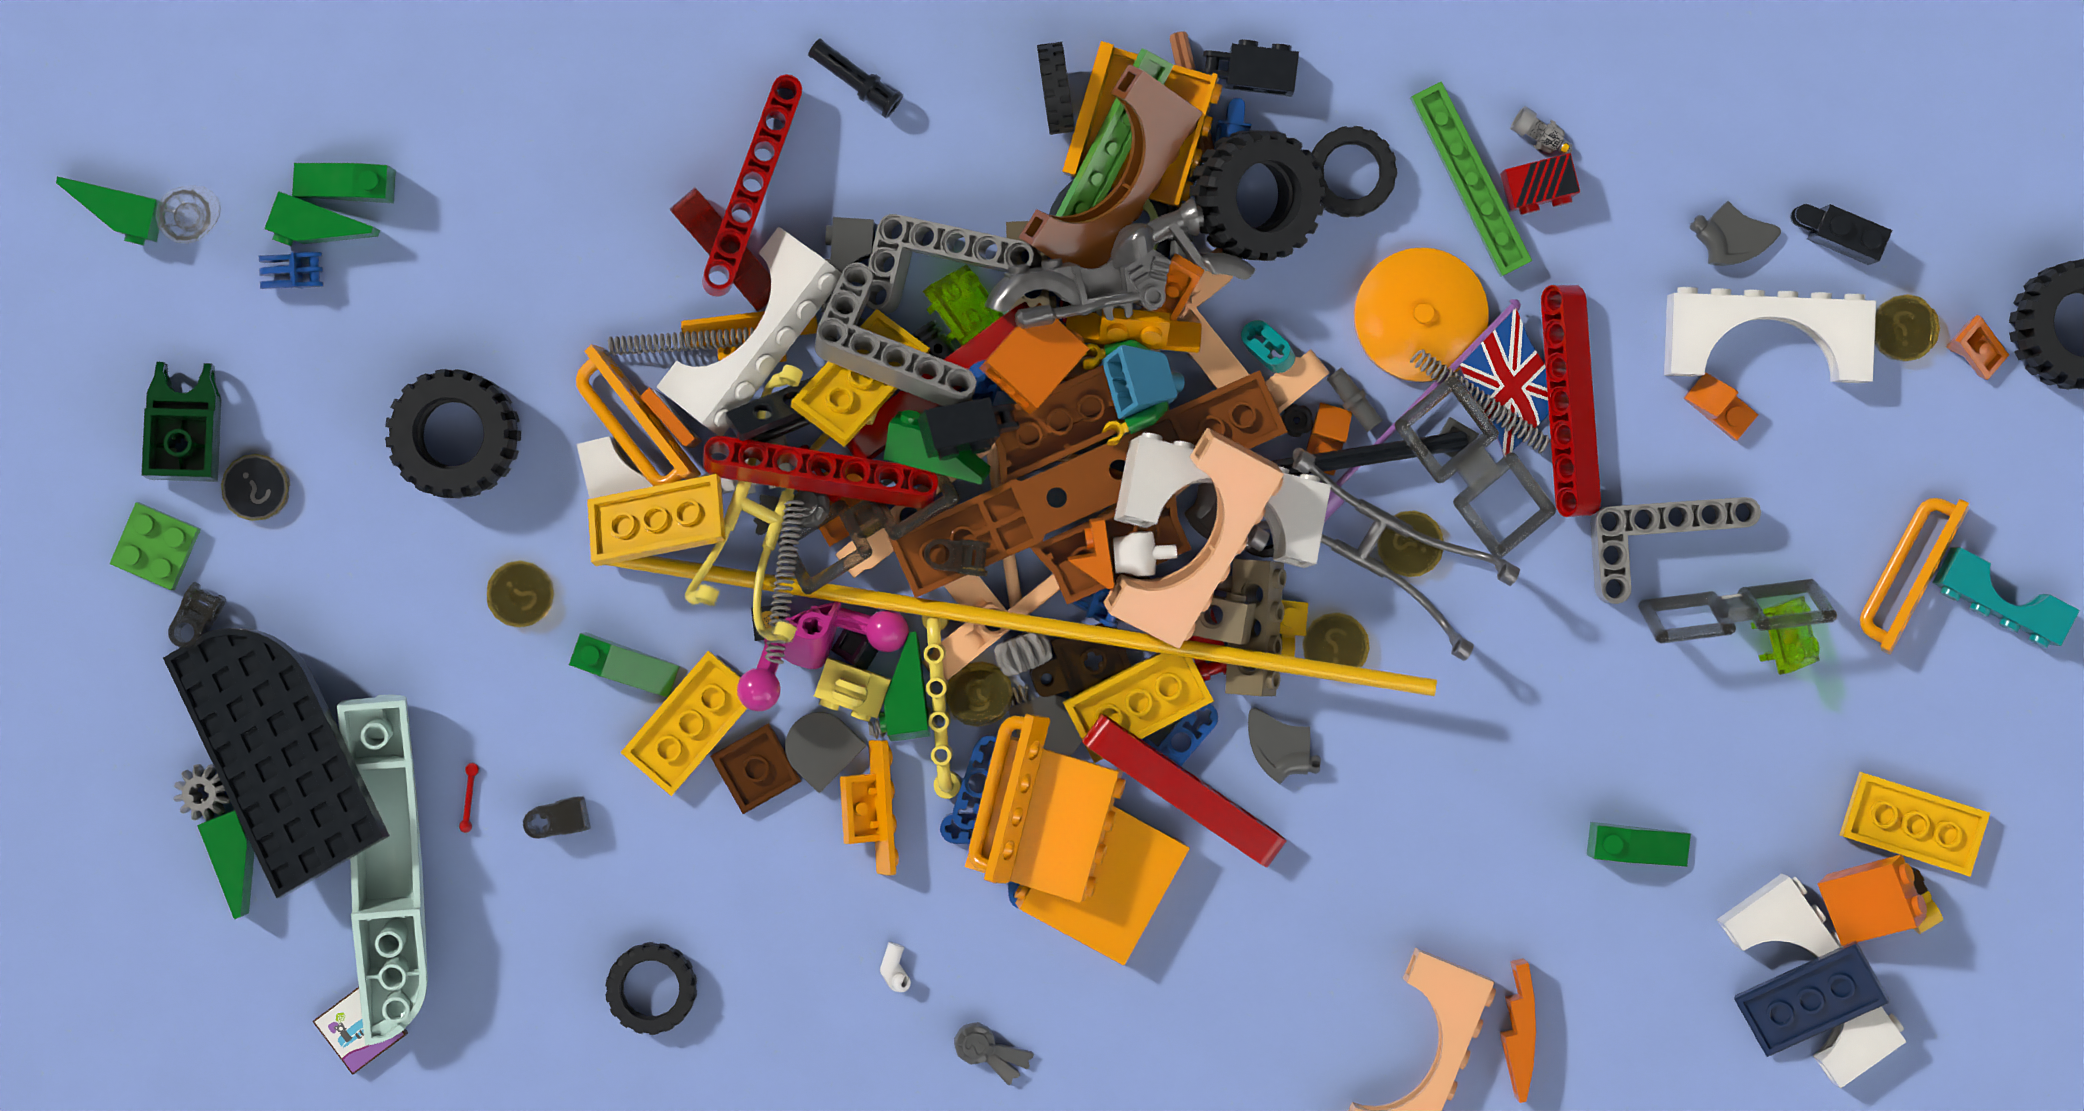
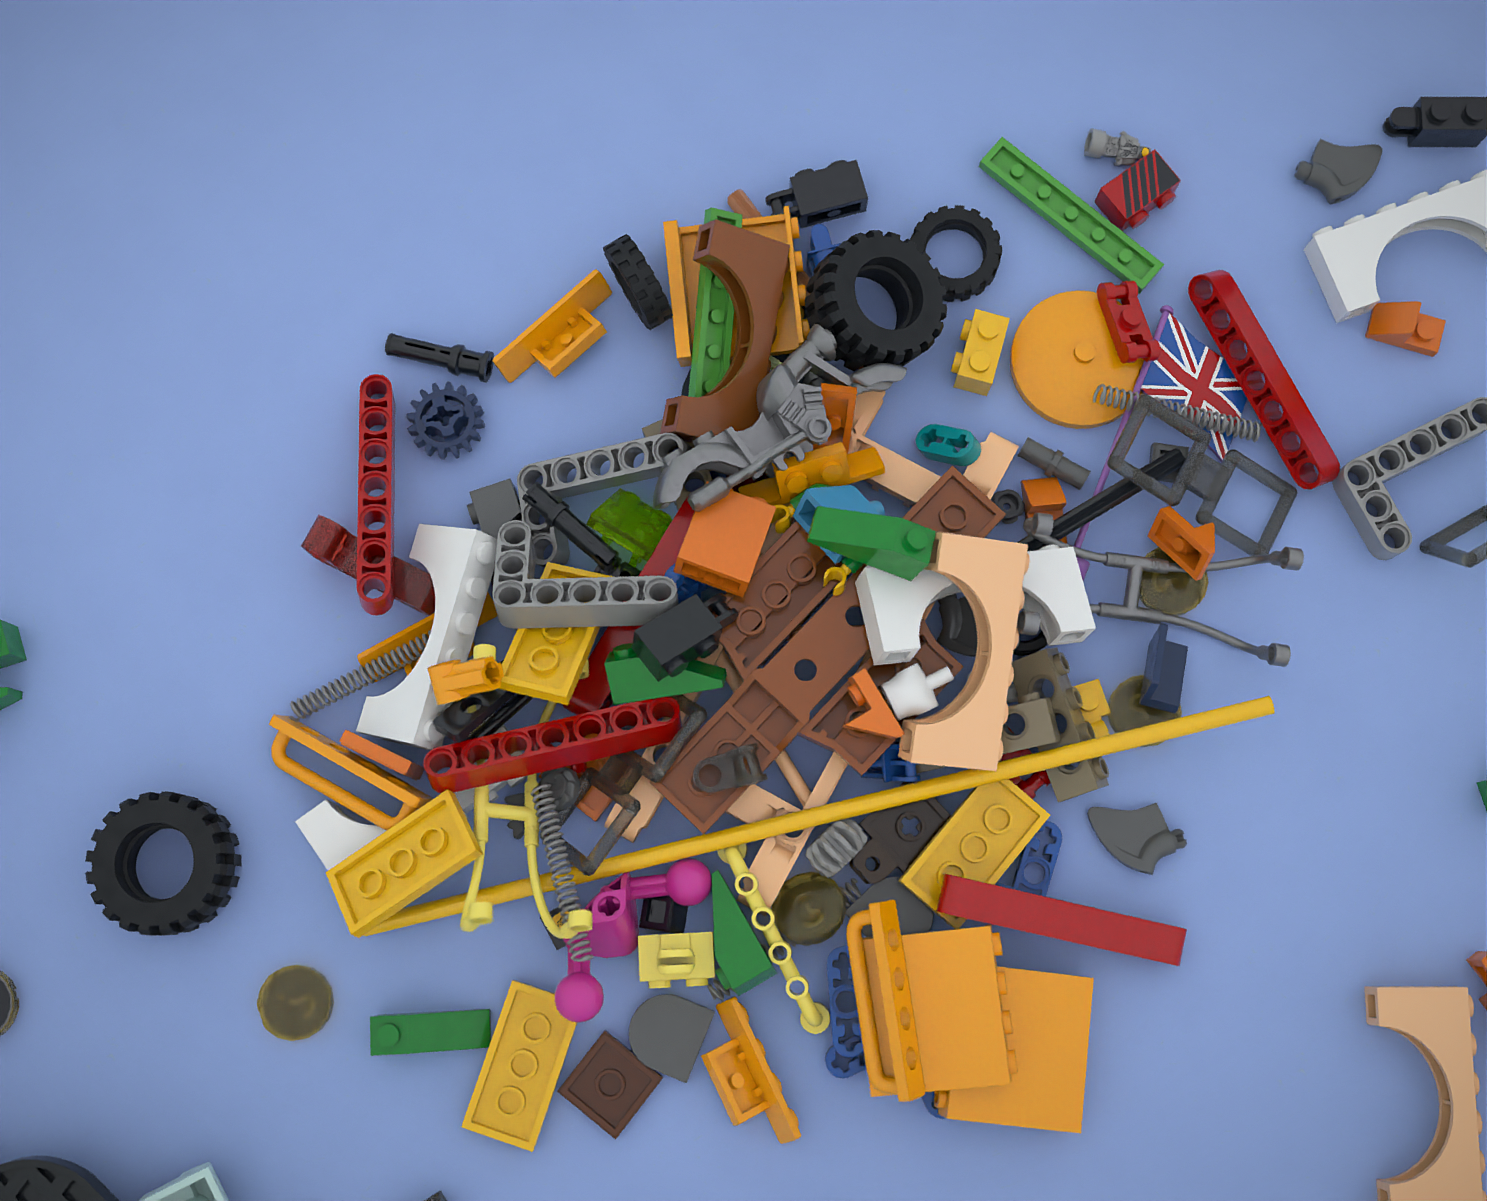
camera: 20 degrees left, 10 degrees down
(760, 387) = (459, 679): none -> light orange piece
(854, 142) = (432, 422): none -> dark blue gear
(911, 292) = (559, 516): none -> black pin
(969, 102) = (559, 333): none -> light orange bracket
(1155, 416) = (874, 540): none -> green slope
(1333, 275) = (981, 352): none -> yellow brick
(1365, 621) = (1163, 672): none -> dark blue panel
(1431, 519) = (1183, 543): none -> orange slope
(1473, 301) = (1127, 322): none -> red plate

